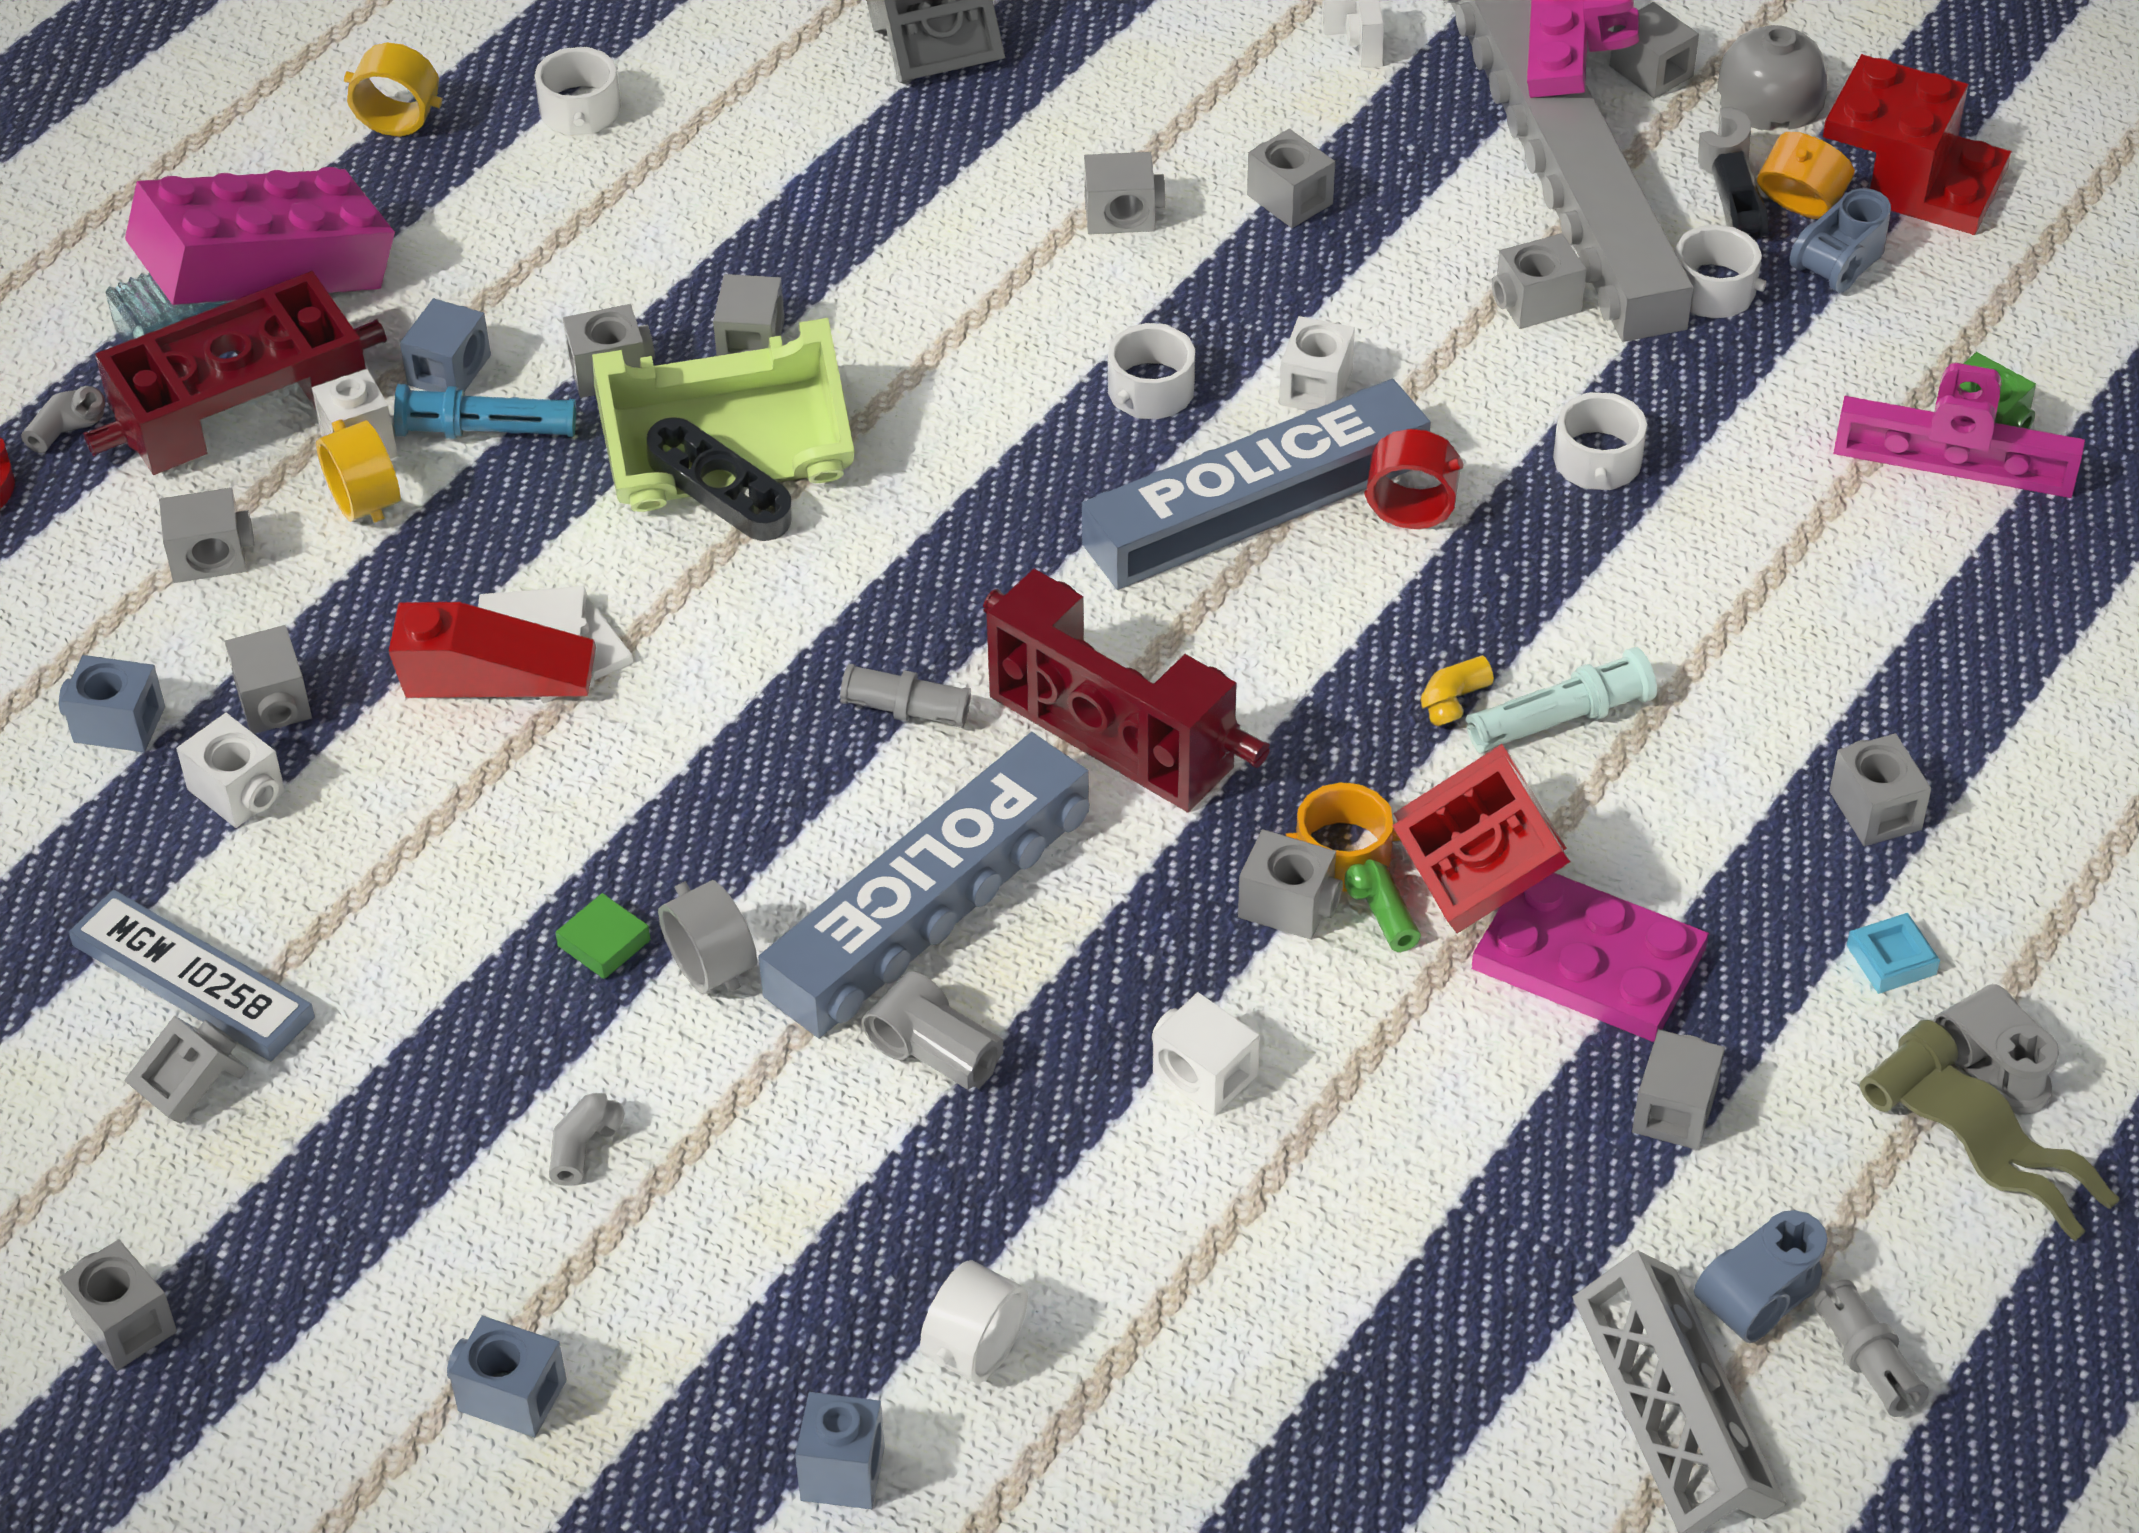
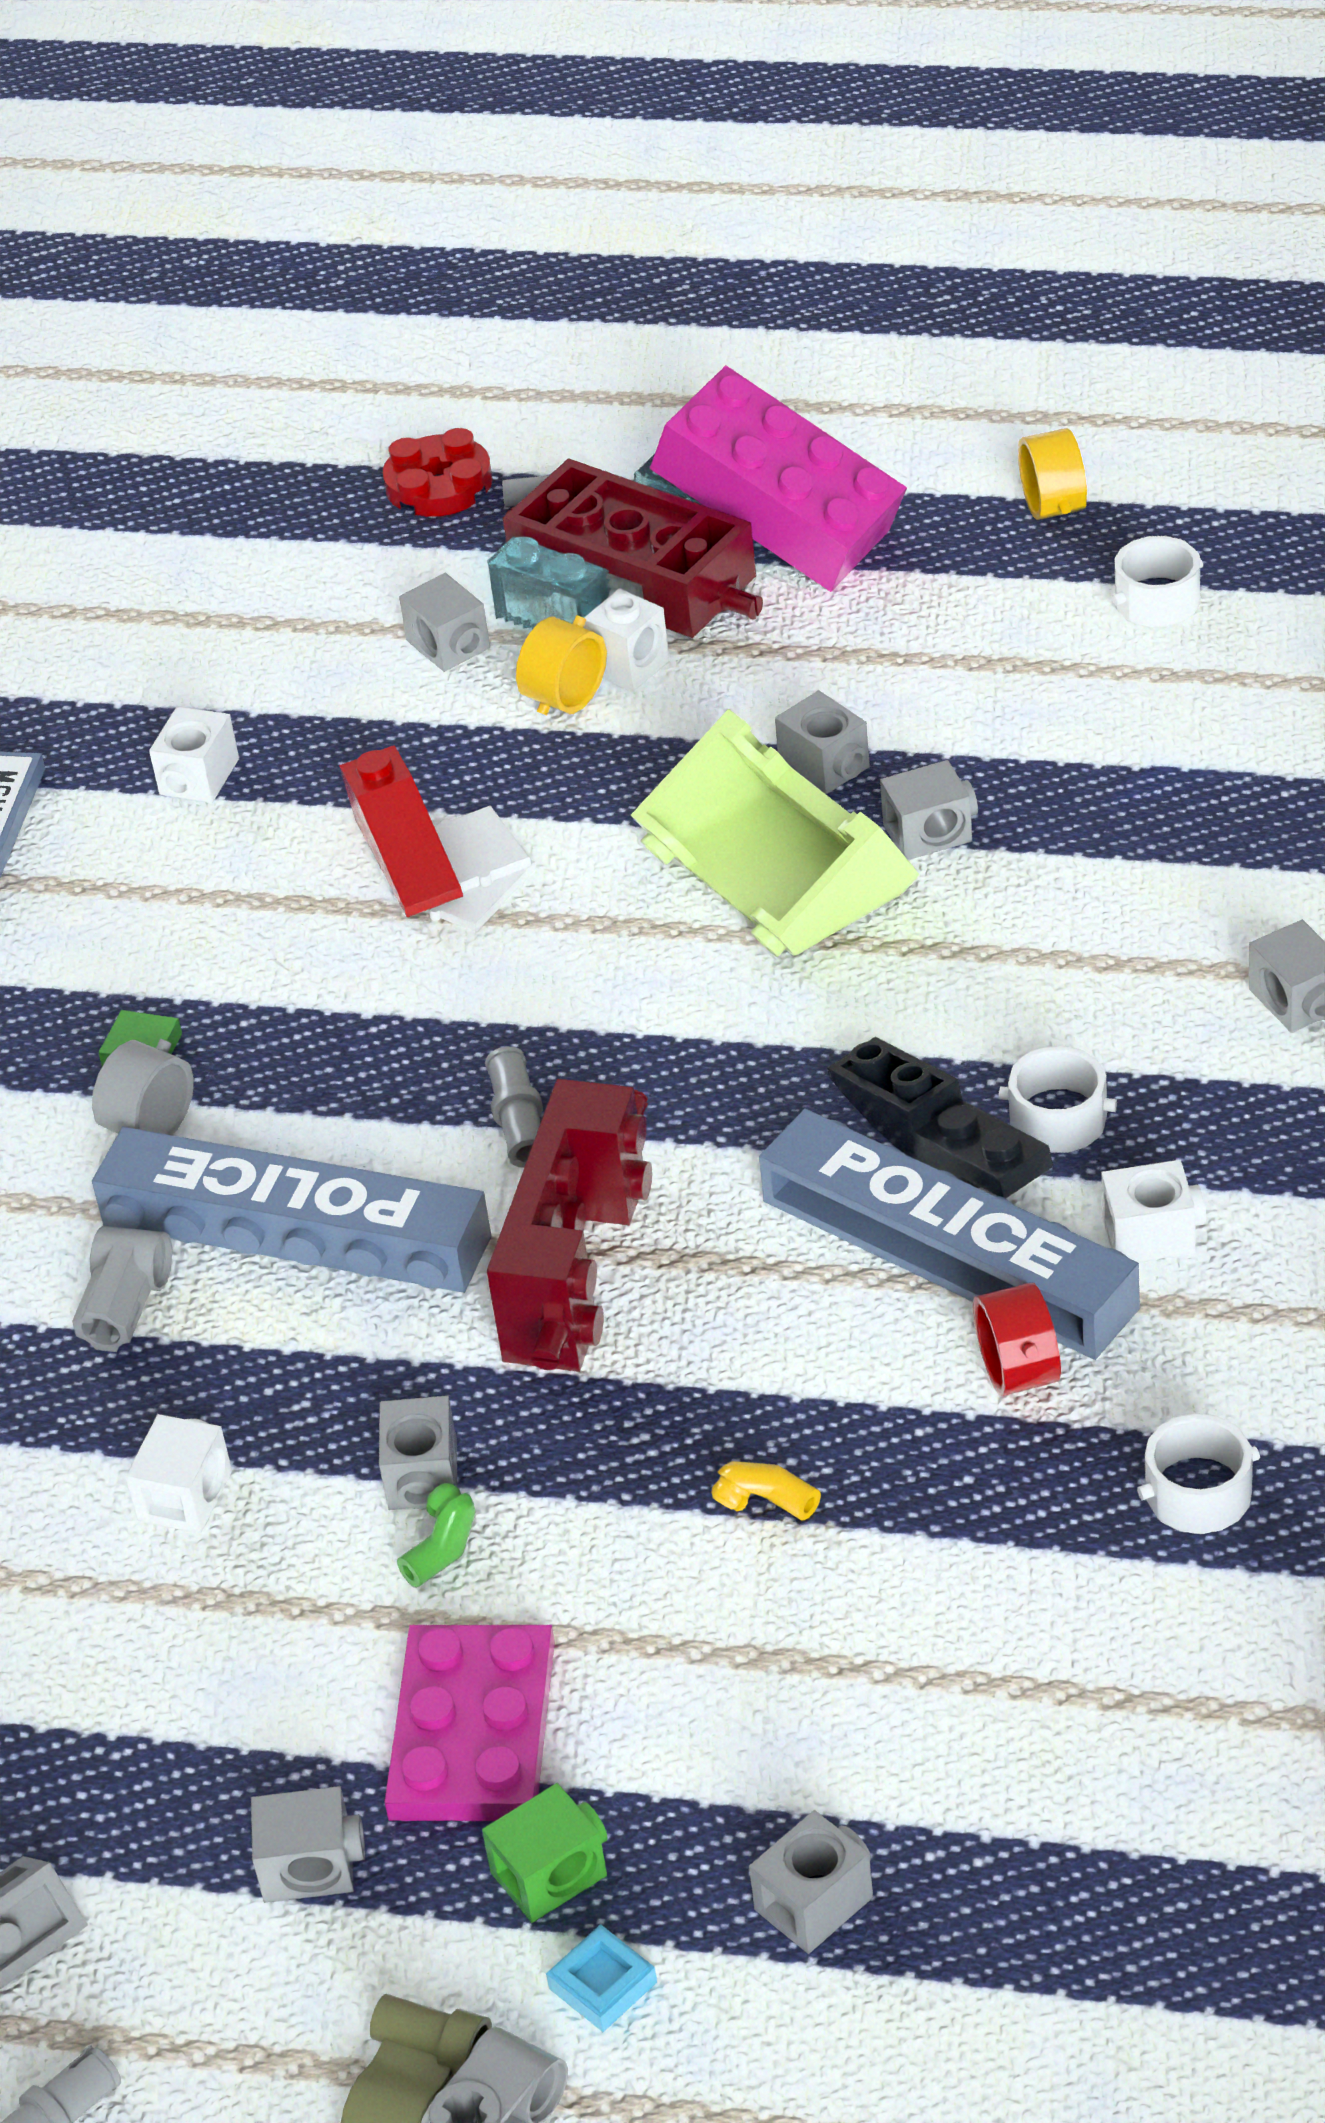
camera: 70 degrees right, 5 degrees down
(112, 703) = (230, 662): sand blue brick -> none
(235, 445) = (542, 583): none -> clear light blue brick
(268, 679) = (304, 729): light grey brick -> none
(445, 347) = (759, 651): sand blue brick -> none
(456, 413) = (681, 686): dark azure pin -> none
(726, 502) = (716, 900): black beam -> none
(1112, 450) = (929, 1121): none -> black slope
(1349, 805) = (503, 1439): light orange piece -> none
(1480, 838) = (510, 1553): bracket -> none
(1586, 694) = (815, 1591): light aqua pin -> none
(1765, 1274) = (94, 1998): sand blue piece -> none
(1768, 937) = (546, 1851): none -> bright green brick

